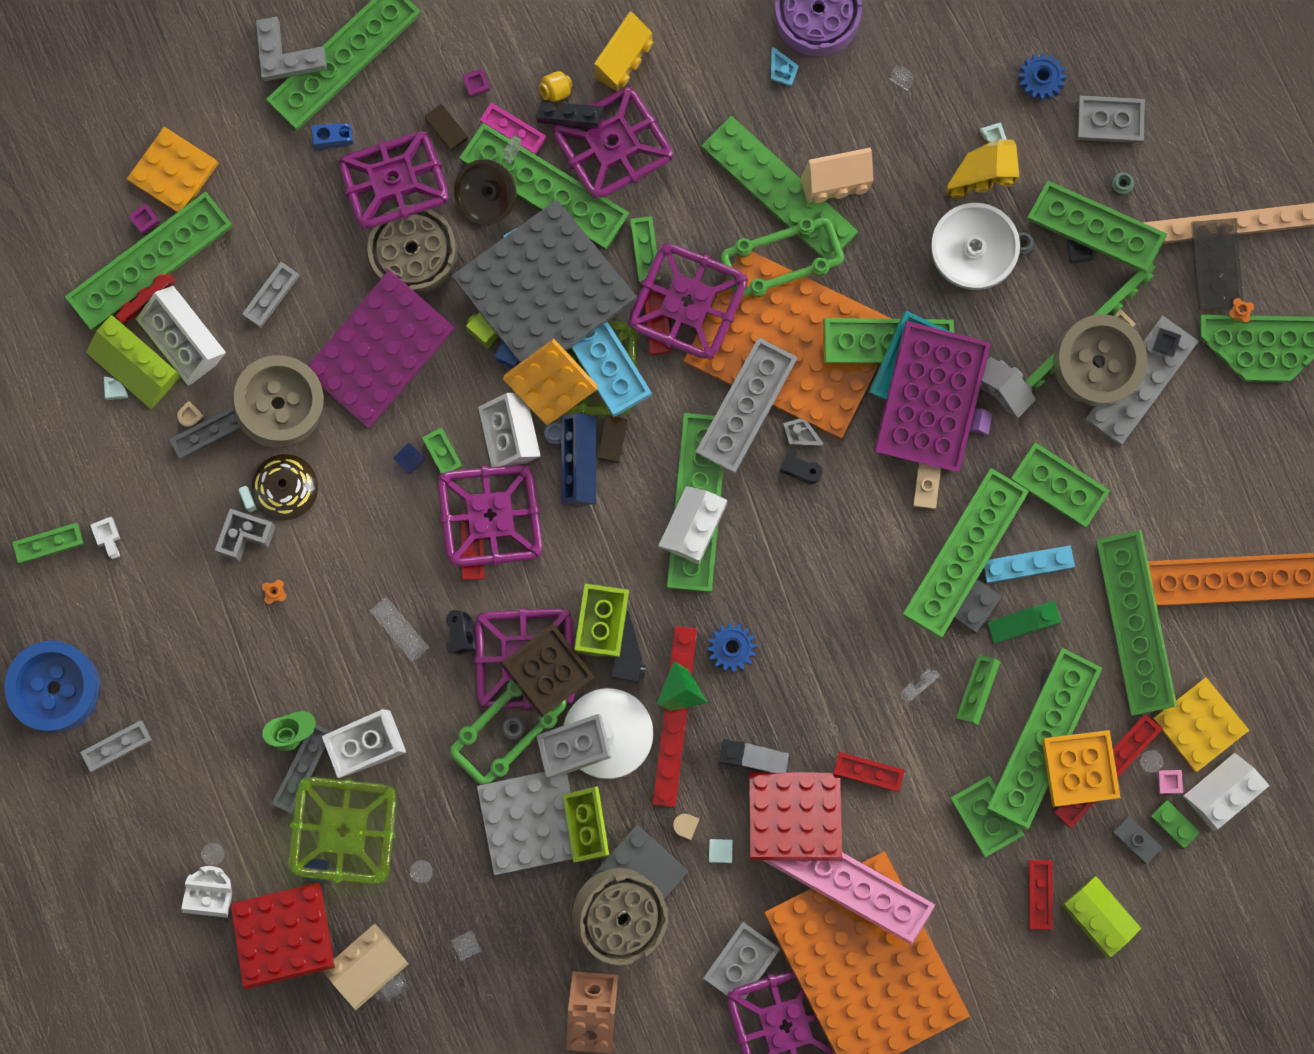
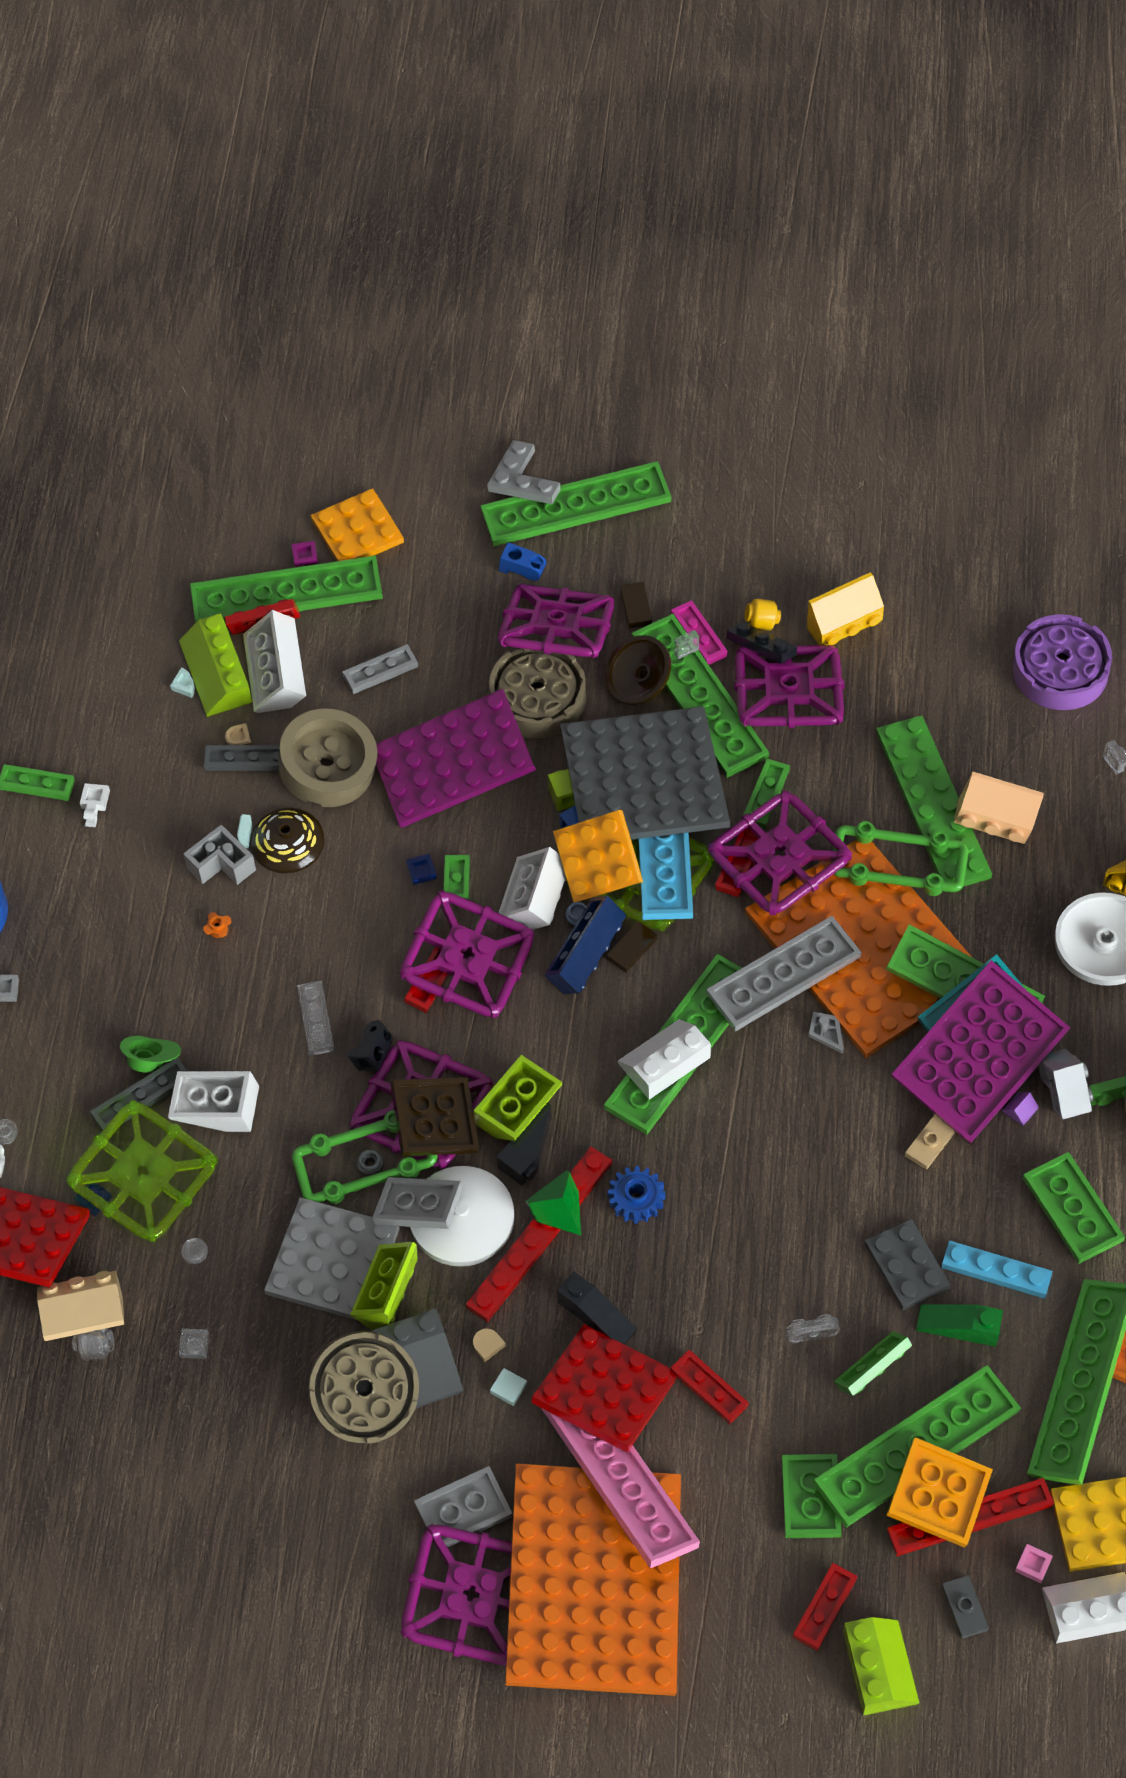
camera: 30 degrees right, 20 degrees down
(476, 83) = (687, 579): magenta plate -> none
(591, 1012) = (278, 1465): nougat bracket -> none
(782, 68) = (998, 698): medium azure piece -> none
(799, 469) = (805, 1062): black leg -> none
(965, 553) = (932, 1220): bright green plate -> none
(1151, 761) = (1024, 1532): clear plate -> none
(1174, 824) = (1016, 1612): bright green plate -> none

